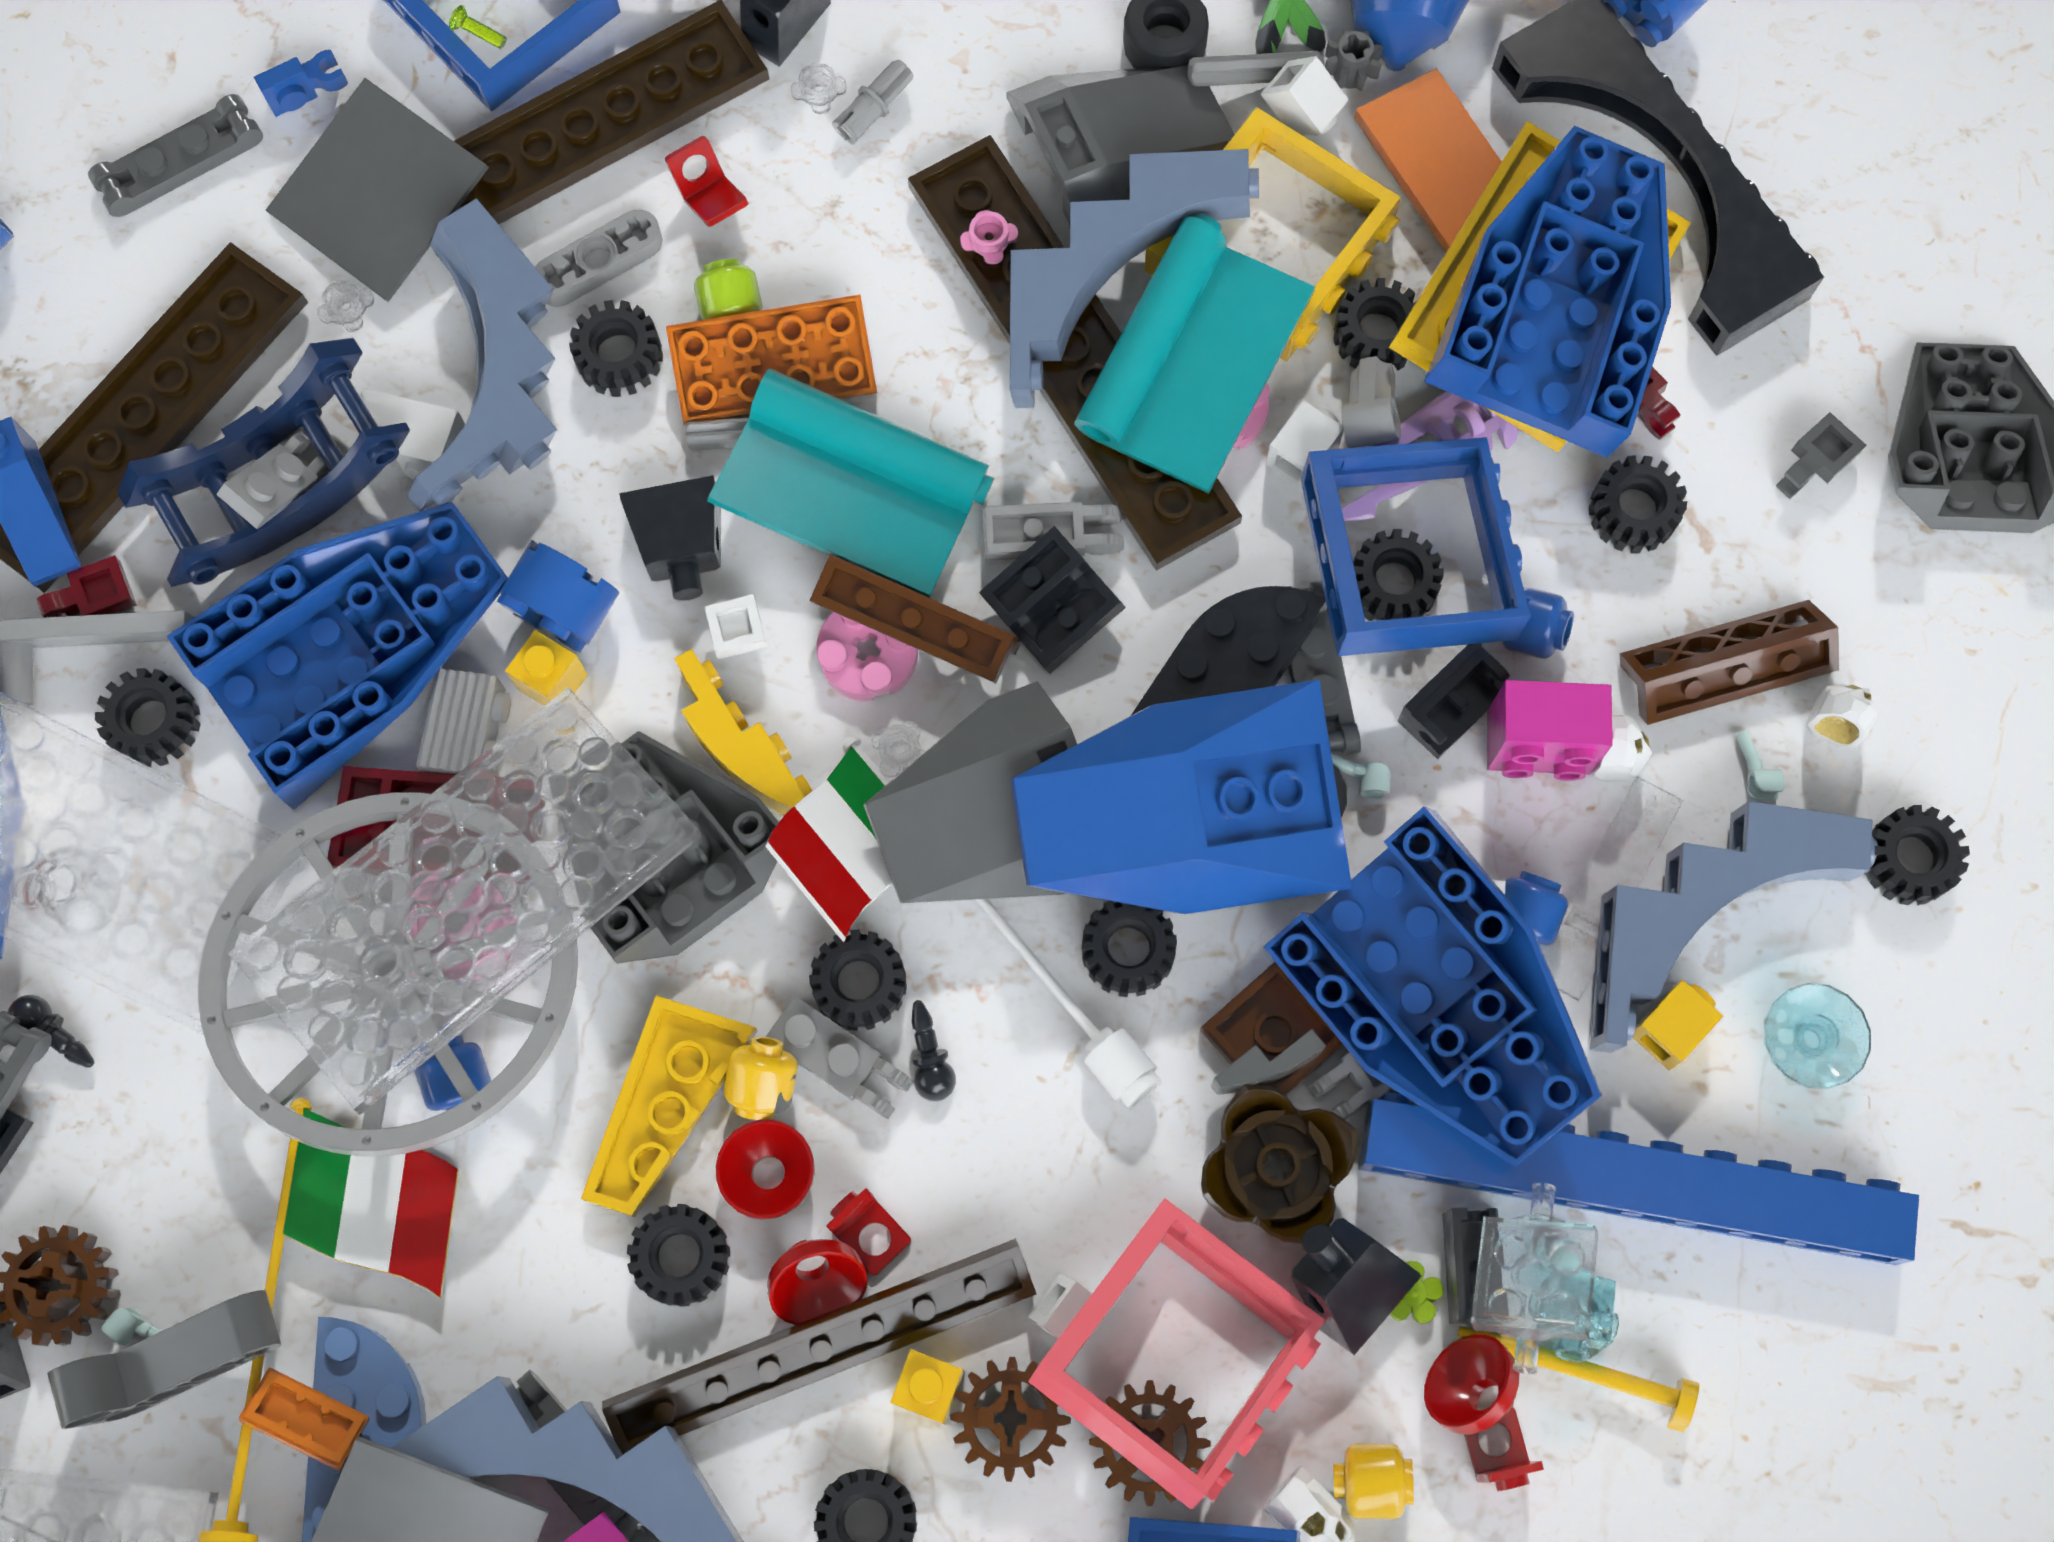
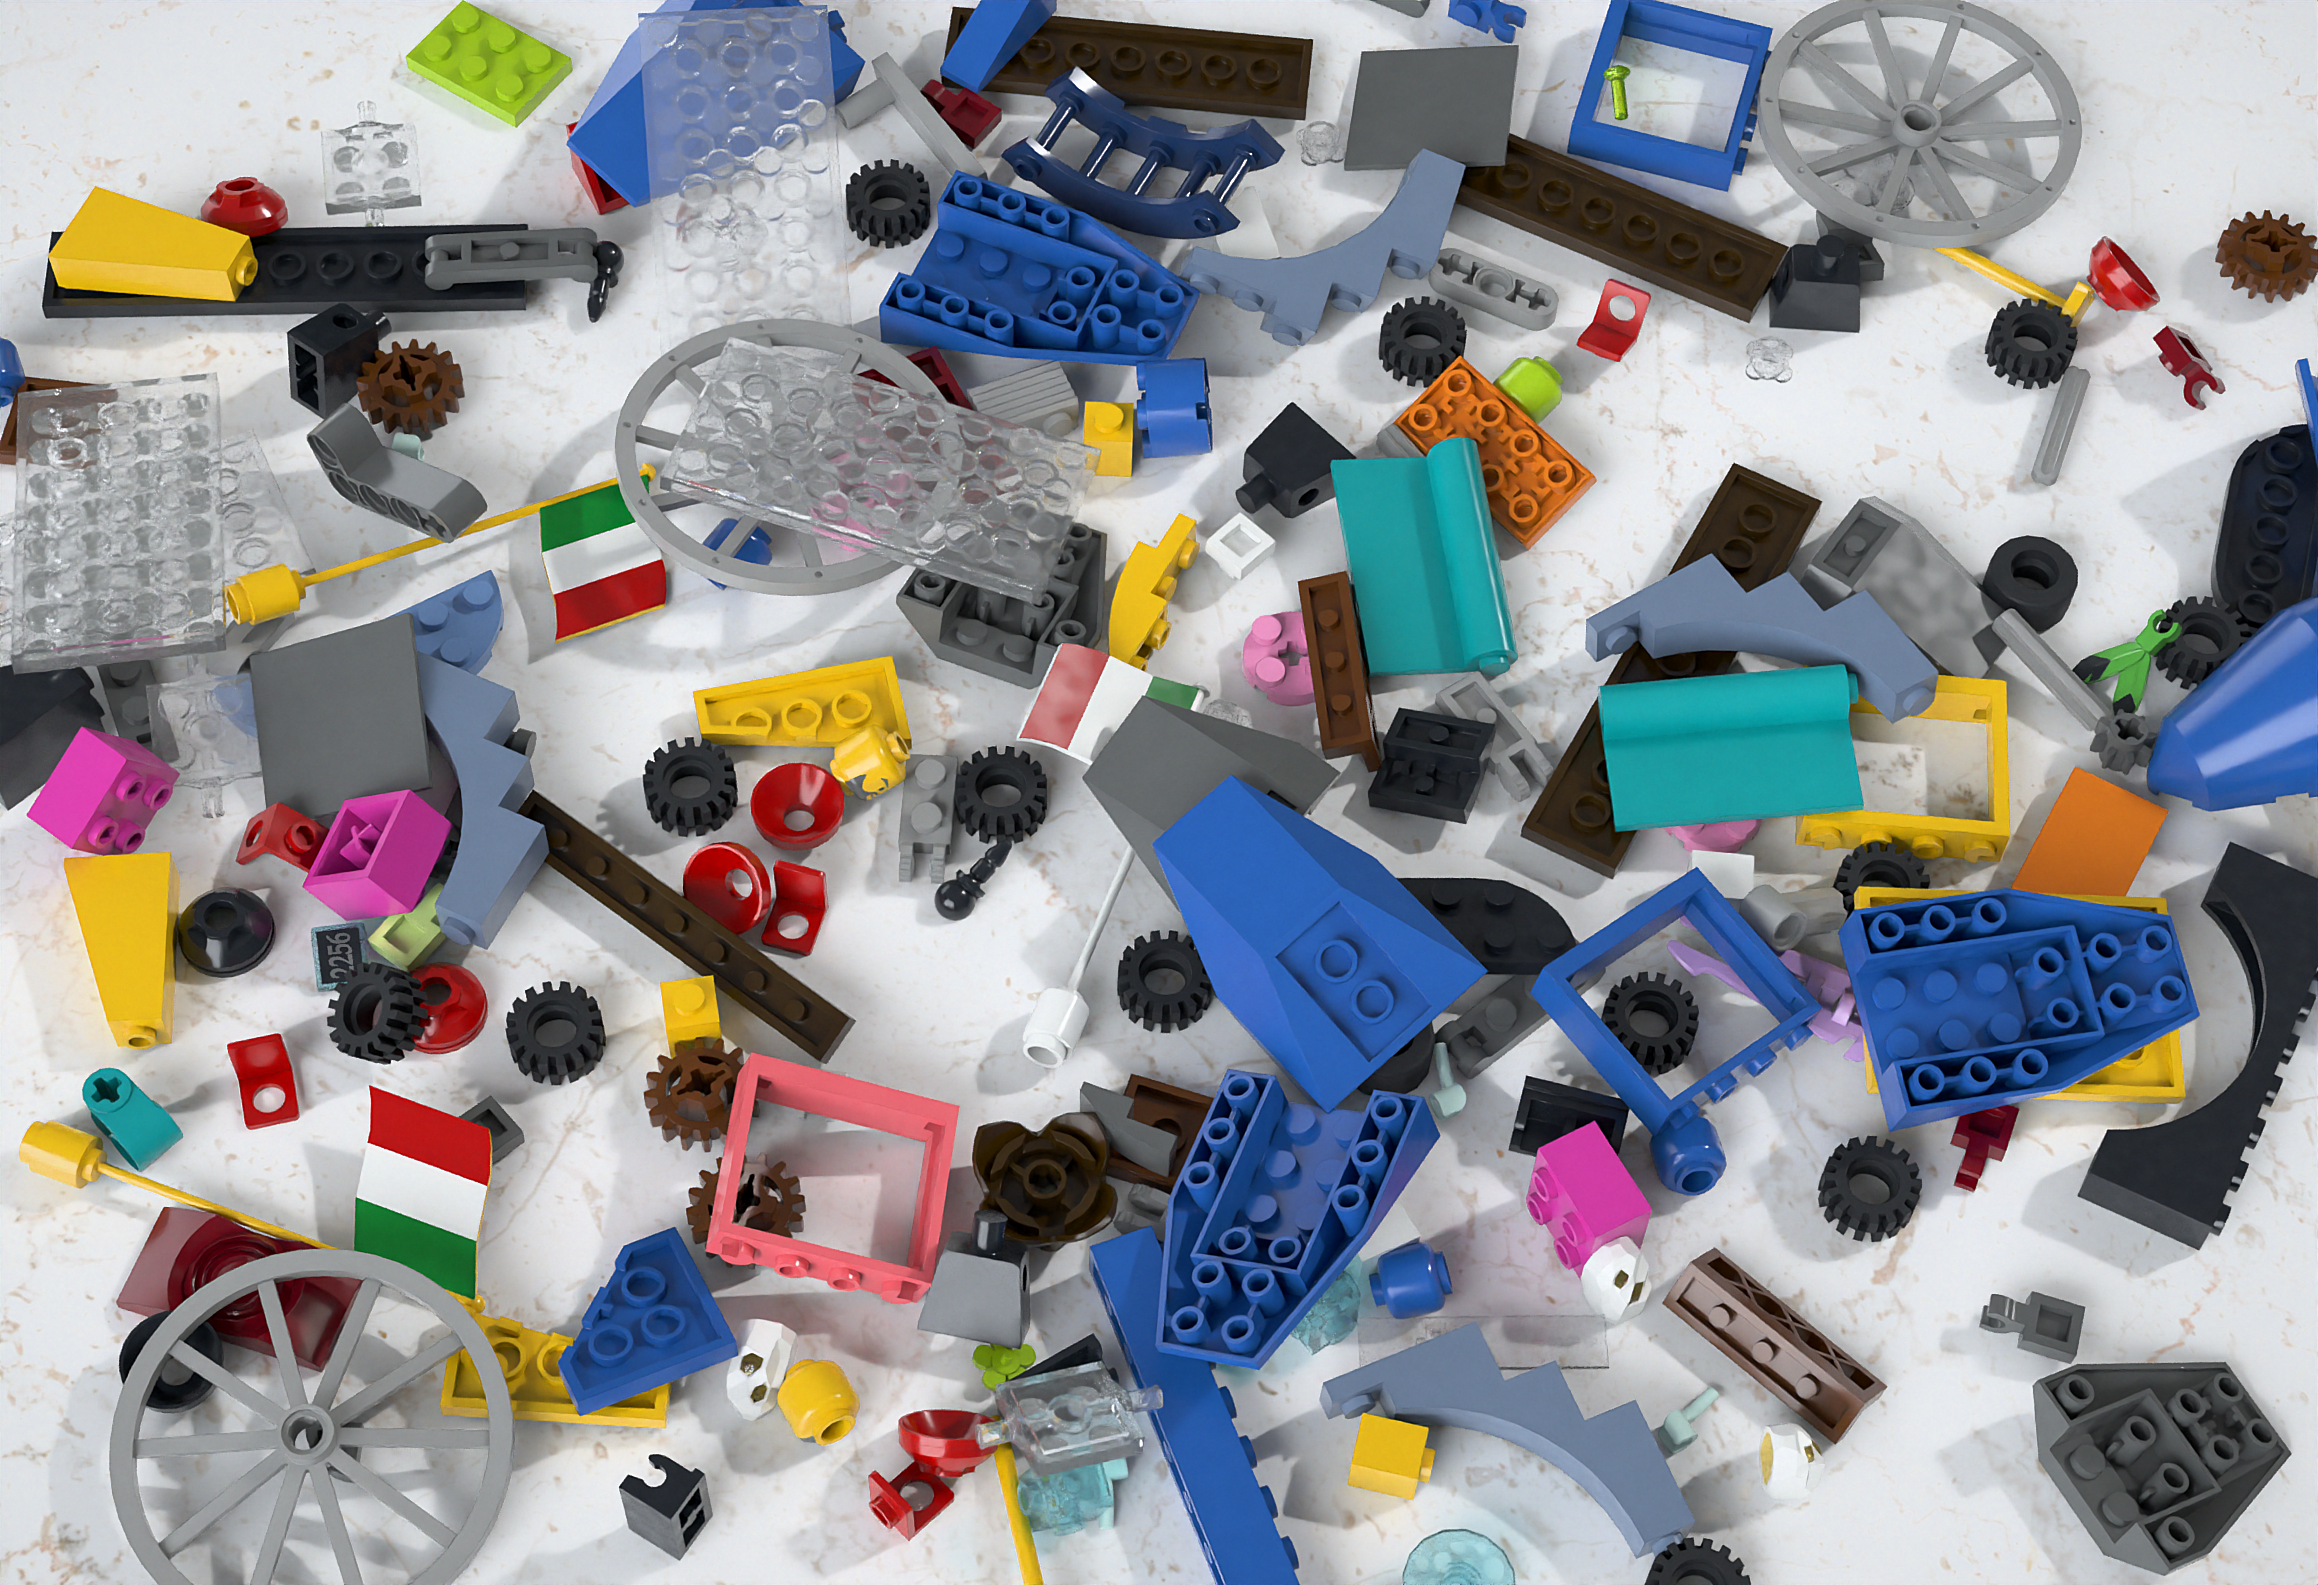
camera: 55 degrees right, 15 degrees down
(272, 481) = (1128, 165): light grey hinge -> none
(304, 1419) = (407, 585): orange plate -> none
(872, 101) = (1787, 404): light grey axle -> none
(989, 224) = (1727, 533): bright pink plate -> none
(1305, 96) = (2050, 719): white brick -> none

